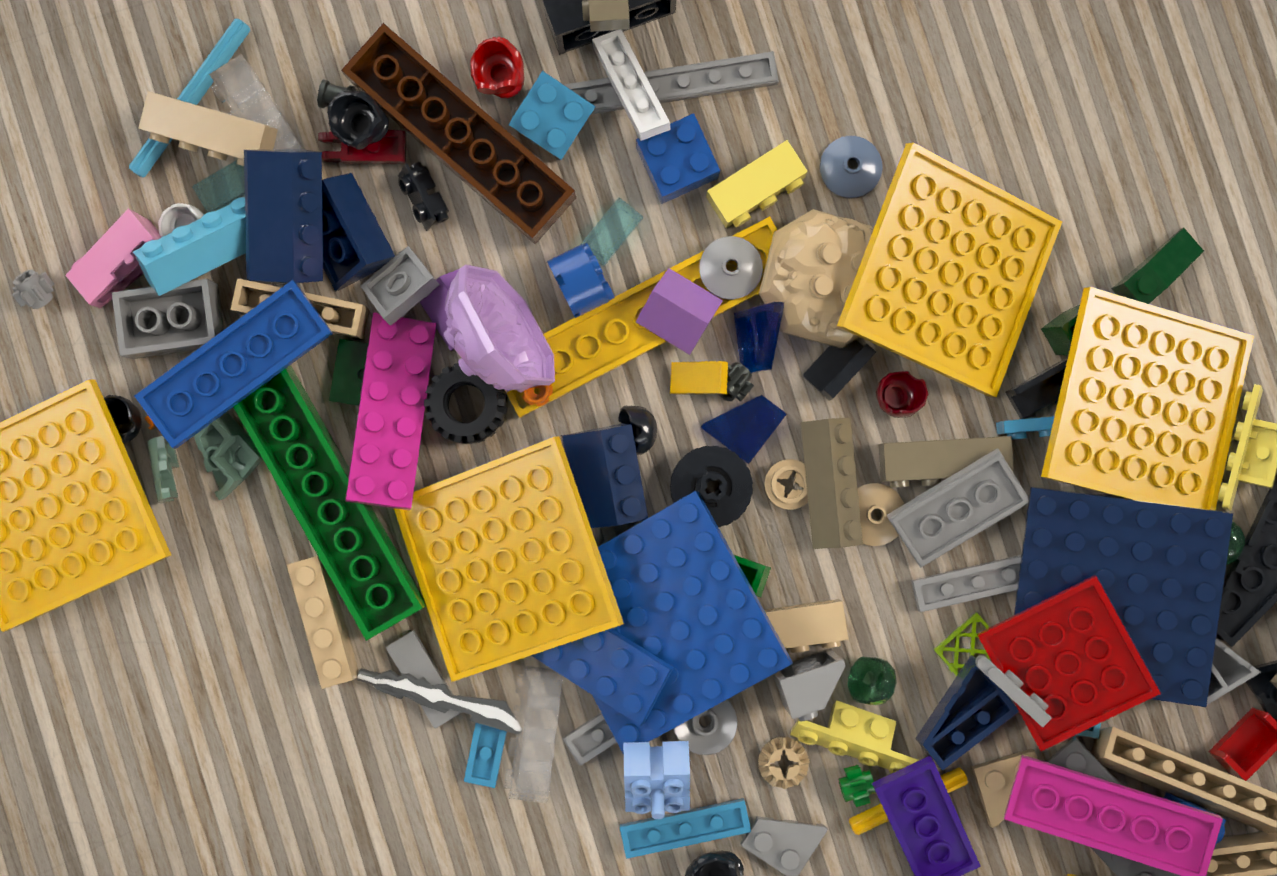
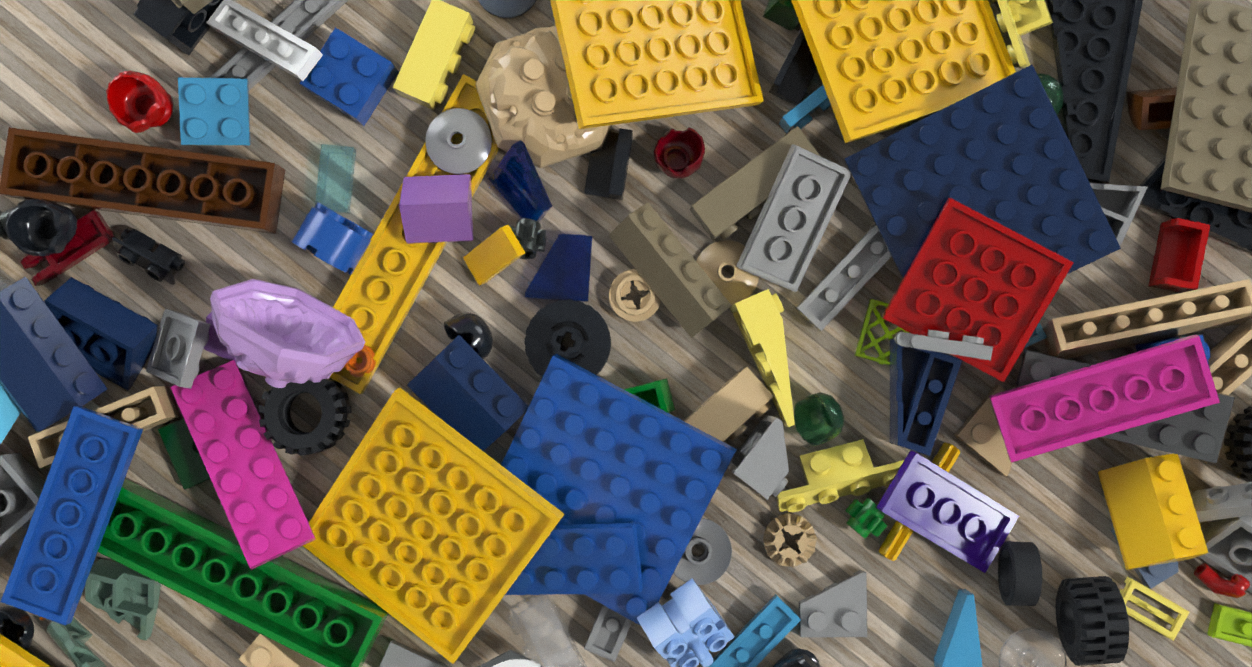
camera: 30 degrees left, 0 degrees up
(871, 586) = (764, 335): none -> light yellow wedge

